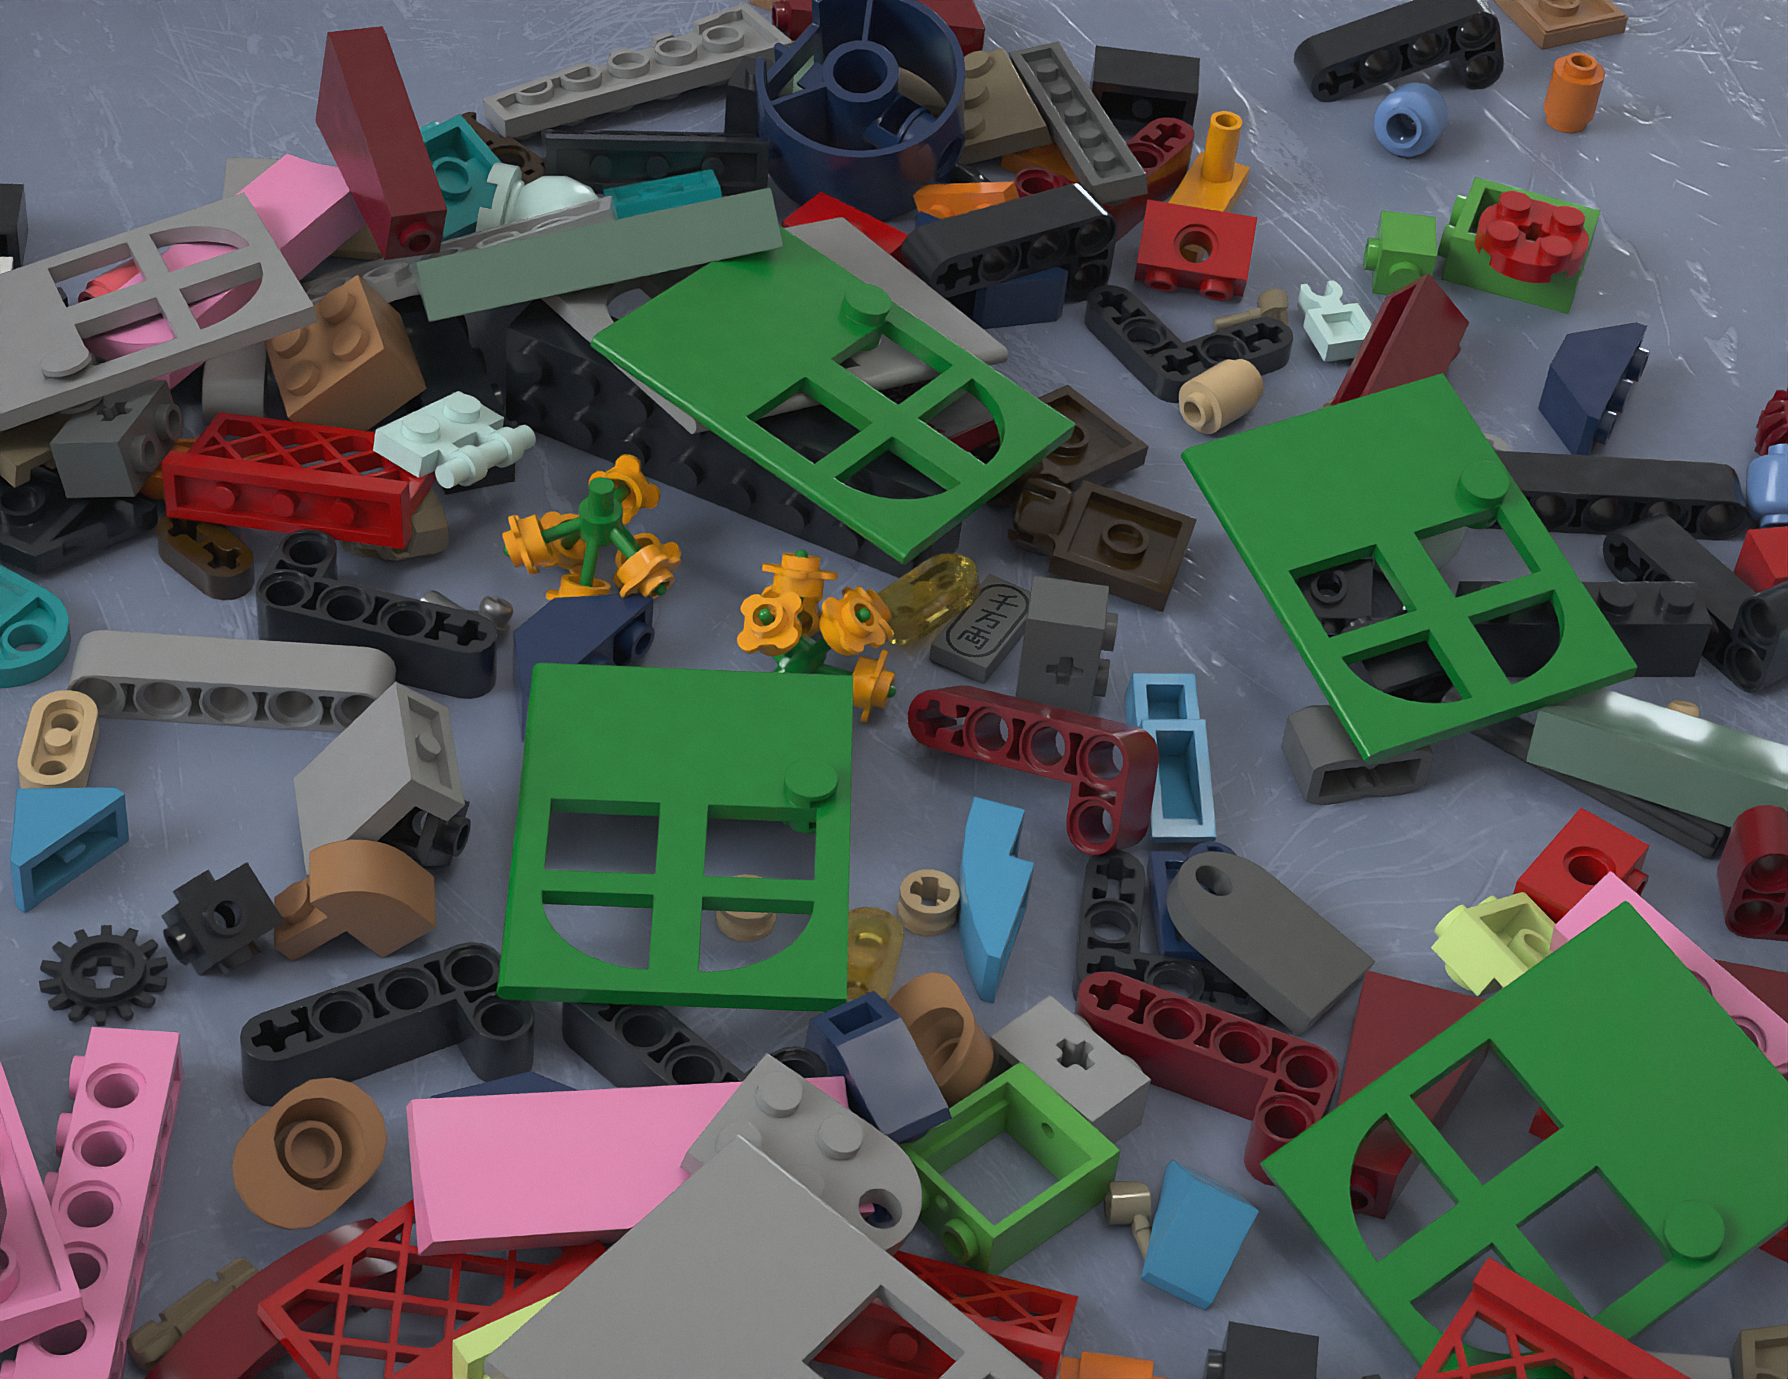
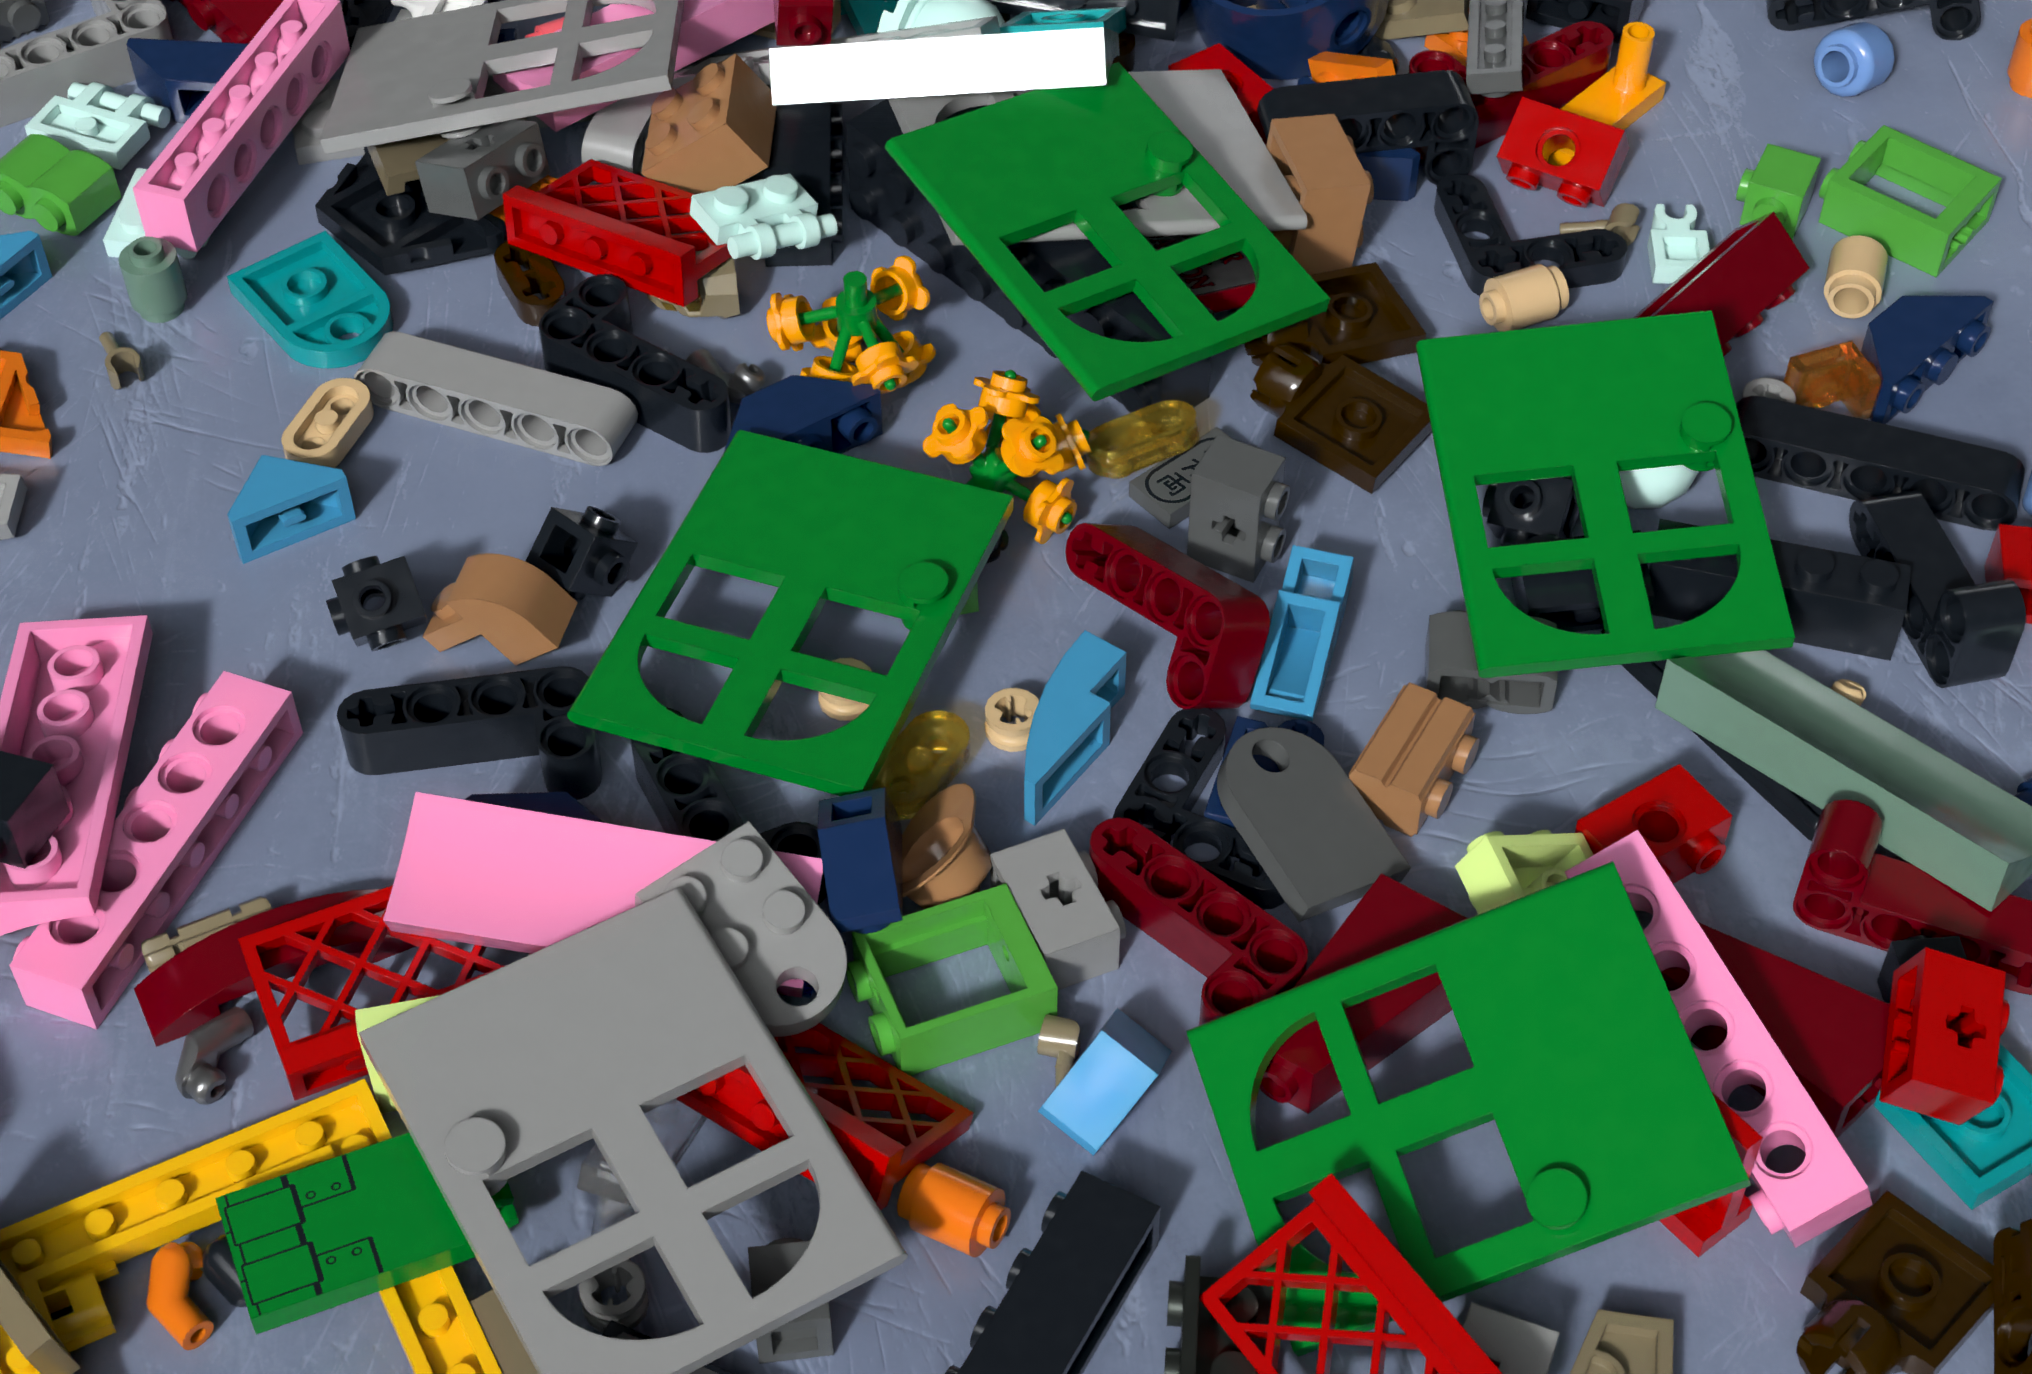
camera: 25 degrees right, 5 degrees up
(83, 961) = (267, 612): black gear -> none
(309, 1153) = (344, 820): medium nougat piece -> none
(379, 770) = (559, 494): light grey panel -> none
(1002, 304) = (1329, 186): none -> medium nougat brick
(1332, 853) = (1413, 757): none -> medium nougat brick
(1507, 324) = (1855, 276): none -> tan brick
(1515, 220) = (1932, 189): red plate -> none
(1539, 419) = (1833, 376): none -> clear orange bracket

